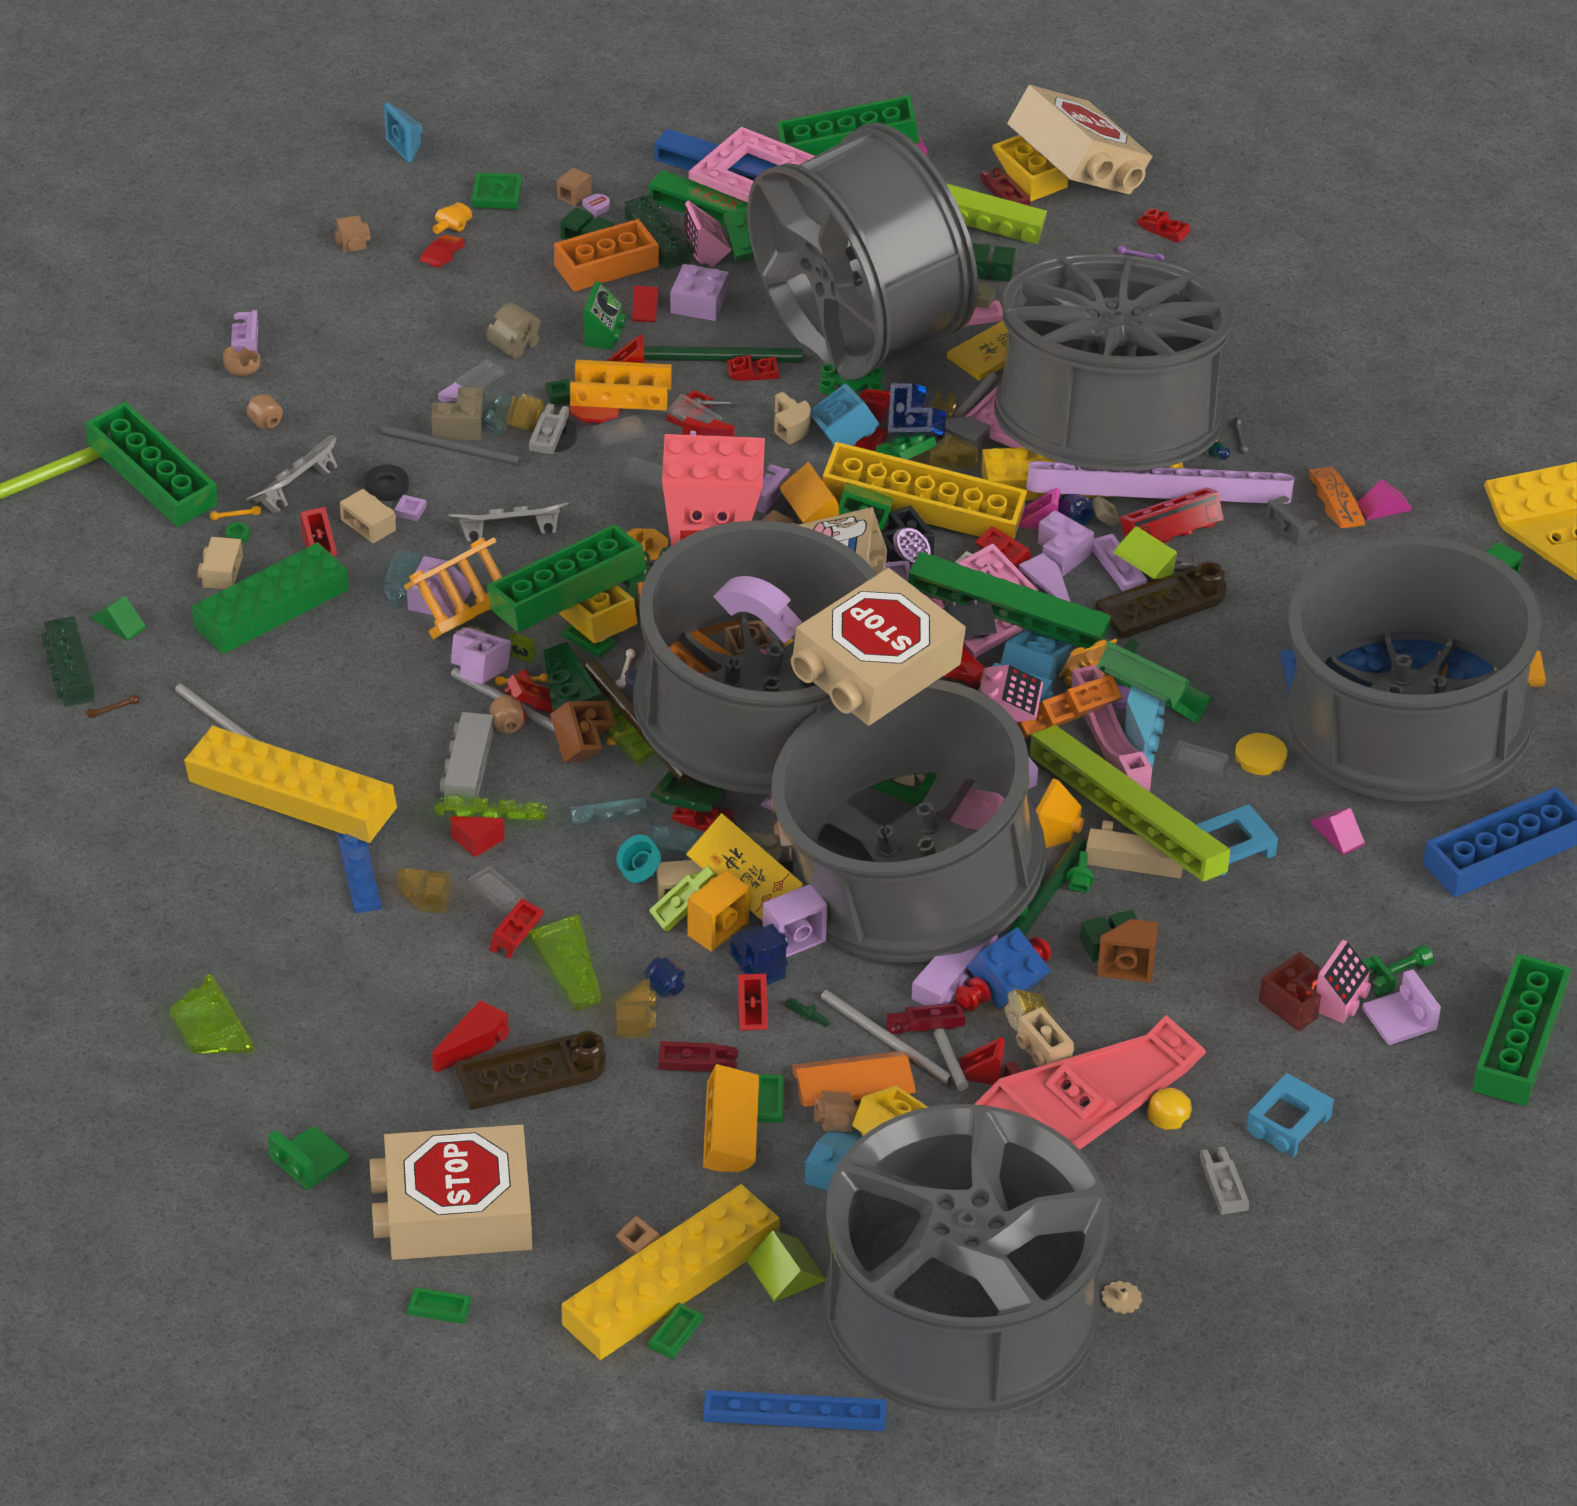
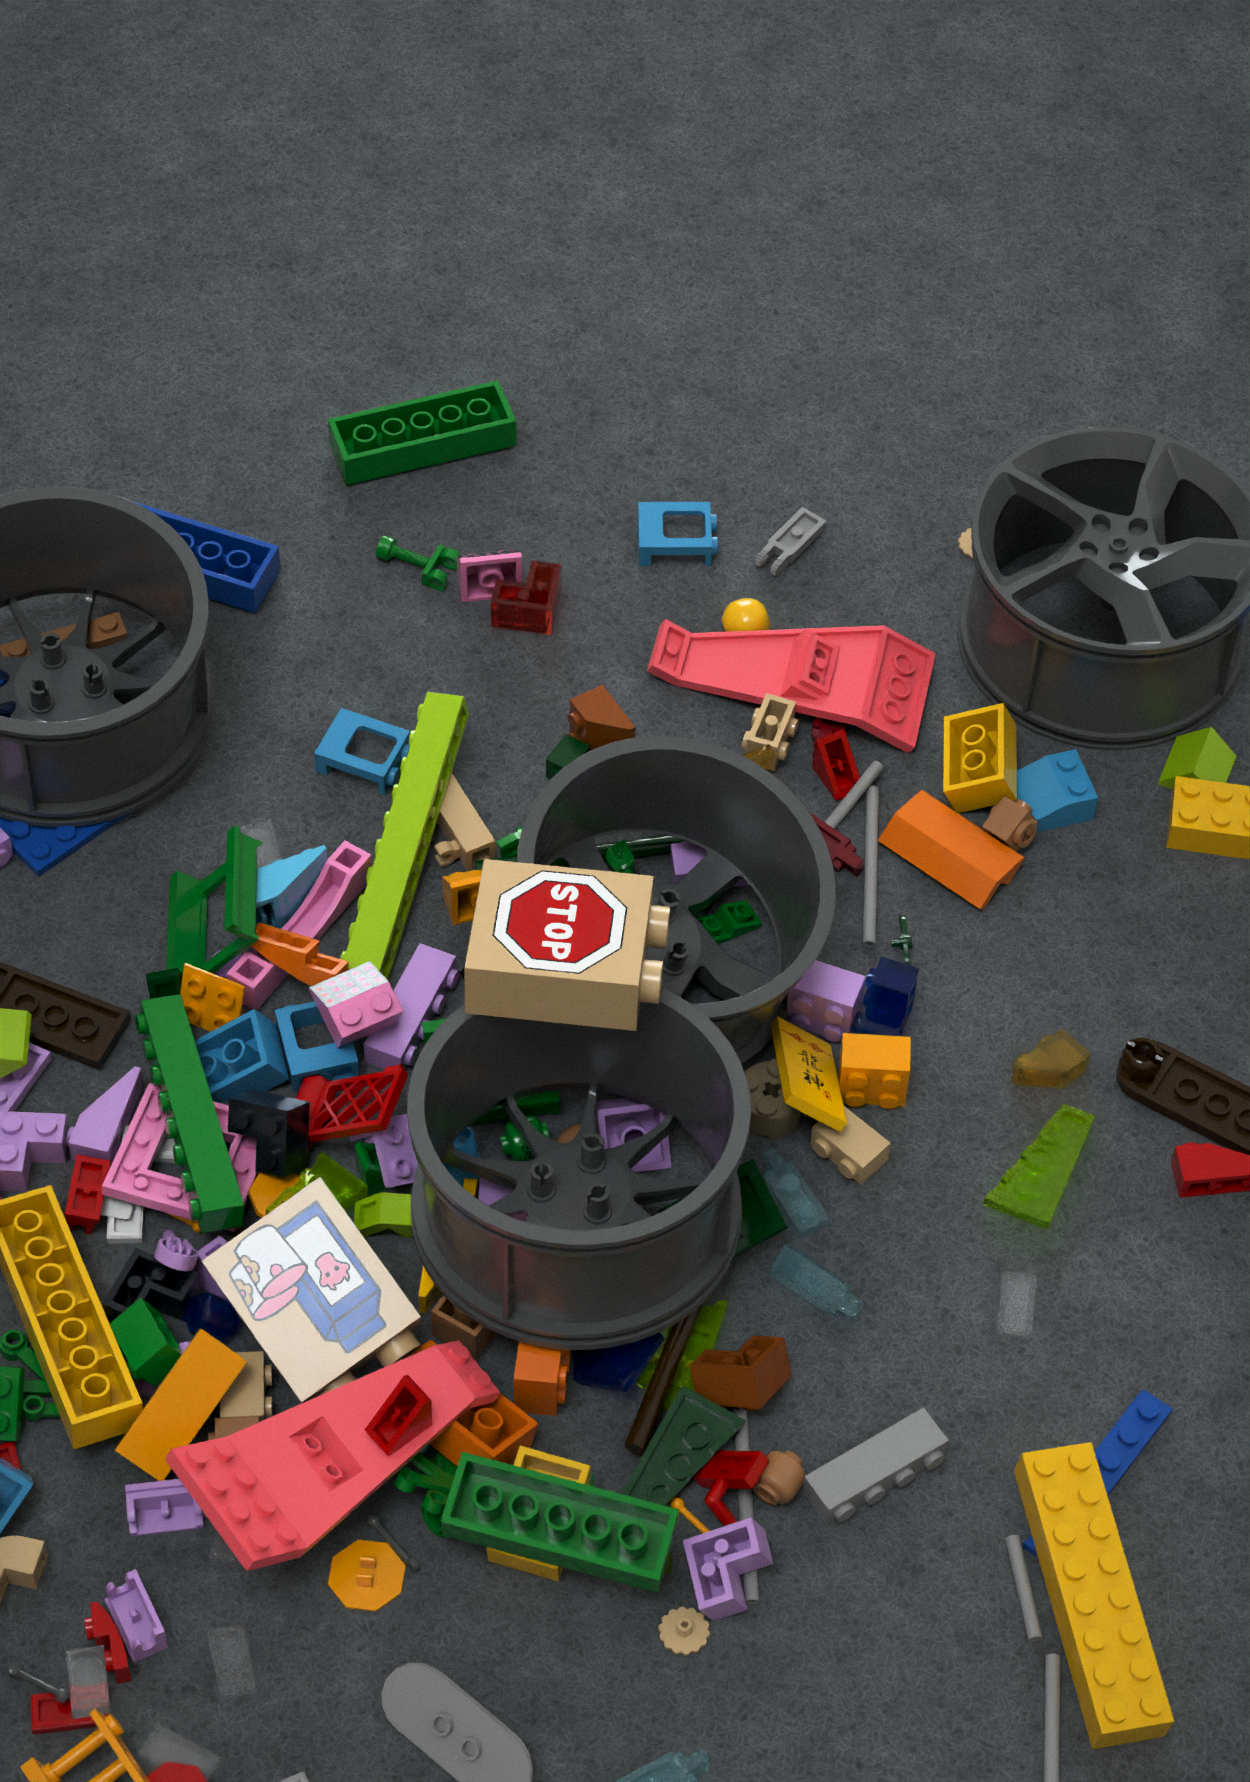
camera: 130 degrees left, 10 degrees up
(415, 599) = (648, 1719): lavender slope -> none
(426, 889) = (1086, 1354): clear yellow slope -> none
(463, 611) = (639, 1664): light orange fence -> none
(477, 833) = (969, 1370): red slope -> none
(515, 927) = (1057, 1236): red hinge -> none
(530, 811) = (932, 1383): clear neon green wing -> none
(630, 653) = (614, 1424): white hinge -> none
(638, 858) = (871, 1186): teal piece -> none
(665, 977) = (987, 1070): clear blue head -> none
(674, 904) = (882, 1113): lime hinge -> none
(695, 1056) = (1050, 984): dark red hinge -> none
(730, 1120) = (1095, 904): light orange brick -> none
(752, 1002) = (944, 982): red slope -> none
(763, 601) = (601, 1090): lavender arch -> none
(770, 1098) = (1033, 902): green tile -> none
(1261, 753) = (210, 807): yellow tile -> none
(1340, 830) = (266, 694): slope -> none
(1406, 1012) = (469, 525): lavender bracket -> none

